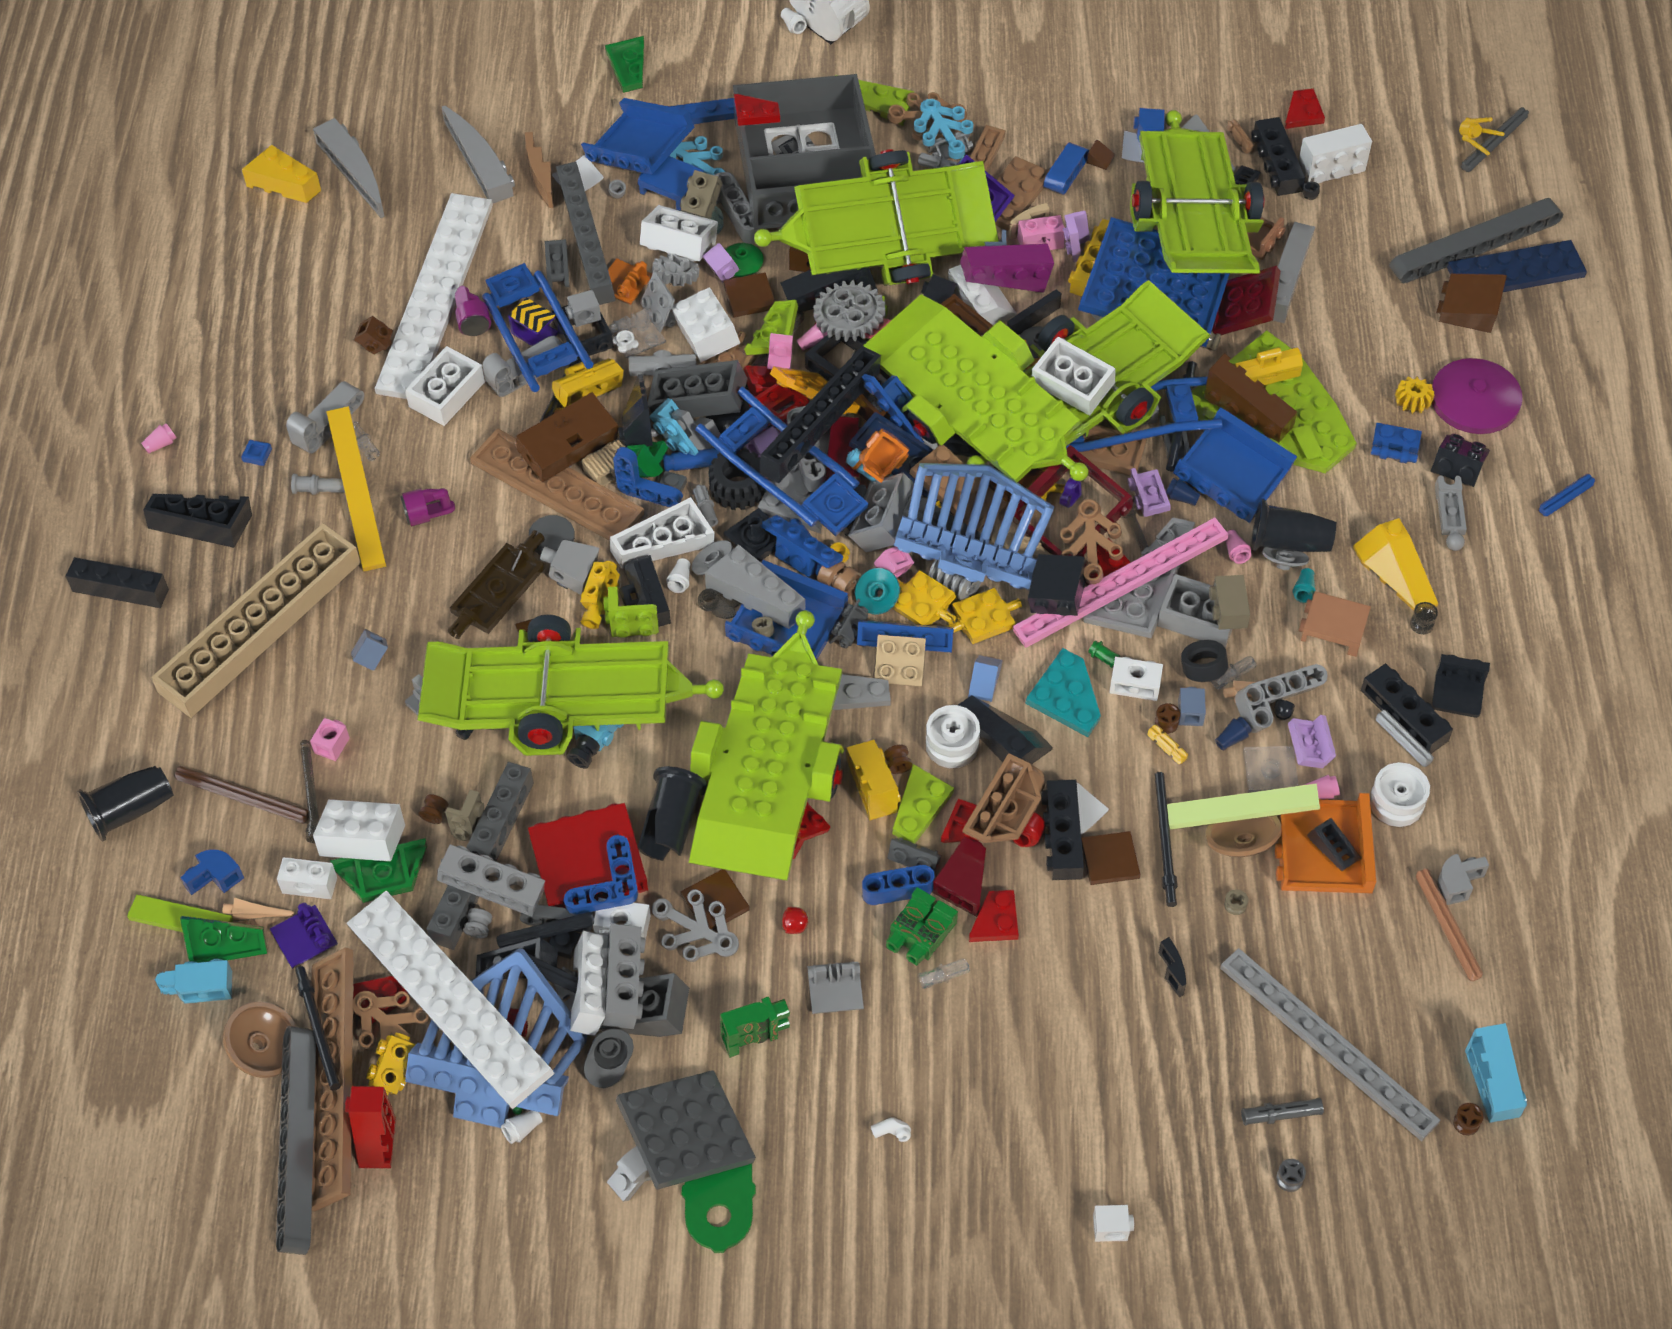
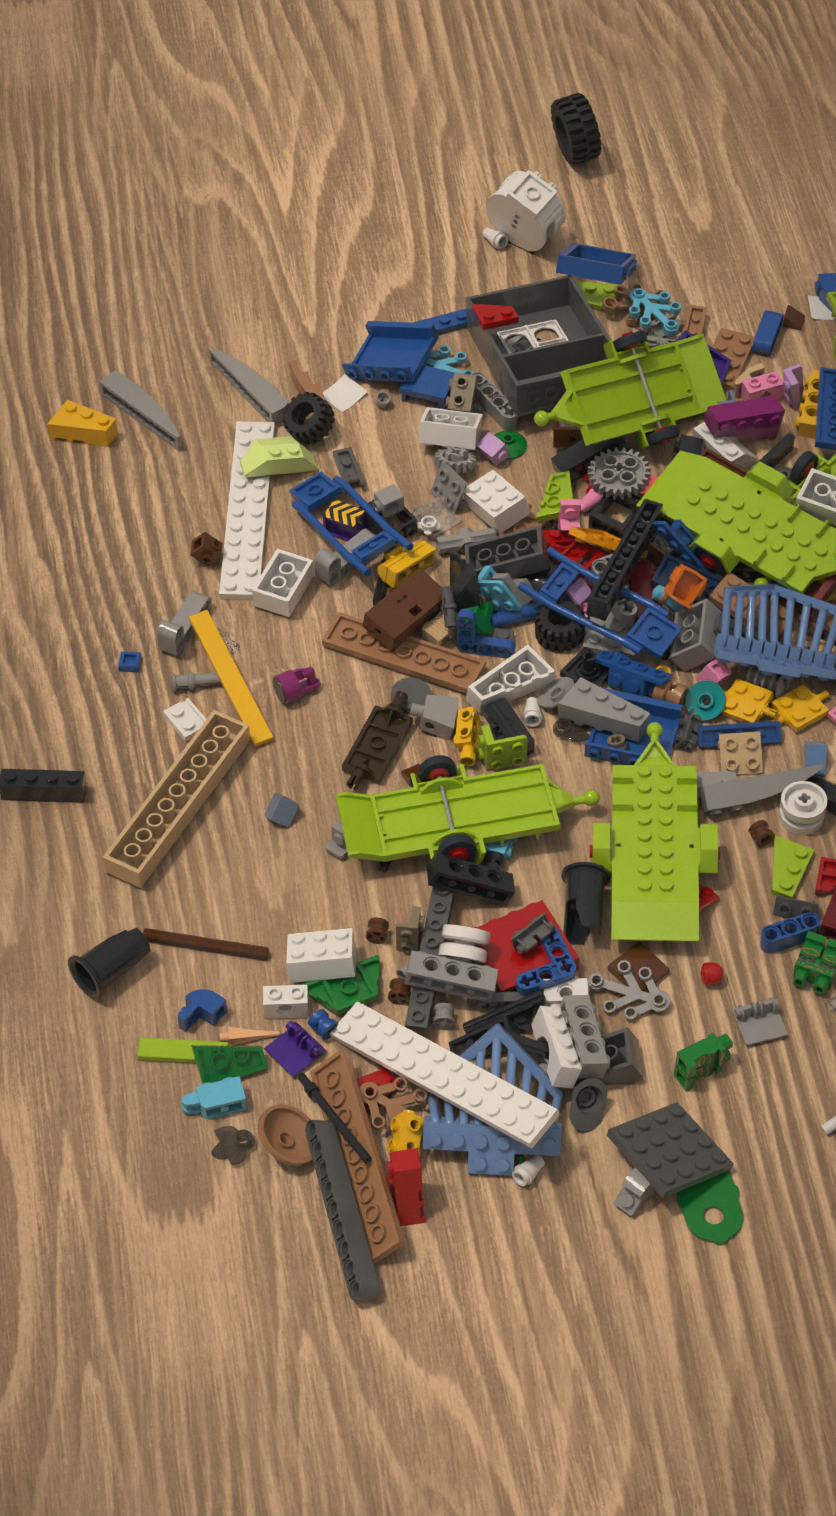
camera: 10 degrees left, 5 degrees down
(159, 438) = (40, 661): bright pink cone -> none
(198, 517) = (98, 721): black wedge -> none
(199, 1040) = (230, 1144): none -> clear smoke plate
(295, 525) = (184, 719): none -> white plate
(310, 790) = (279, 961): clear smoke piece -> none
(330, 747) = (267, 893): bright pink brick -> none
(340, 909) = (322, 1023): none -> blue wheel
(434, 888) = (399, 991): none -> reddish brown wheel
(471, 313) = (287, 519): magenta piece -> none
(481, 240) = (276, 457): none -> yellowish green wedge
(515, 846) = (464, 943): none -> white wheel
(525, 200) = (298, 411): none -> black tyre
(548, 766) = (470, 879): none -> black brick
(585, 233) = (366, 437): dark grey brick -> none
(587, 847) = (524, 940): none -> dark grey hinge
(613, 438) = (448, 607): none -> dark grey pin
(628, 62) = (359, 291): green wing -> none
(628, 279) = (411, 475): orange hinge -> none
(705, 504) = (531, 641): light grey axle -> none
(749, 294) = (523, 472): reddish brown tile -> none
(873, 779) = (746, 852): yellow wedge -> none
(891, 64) = (596, 263): none -> blue window
(896, 706) = (749, 790): none -> light grey slope

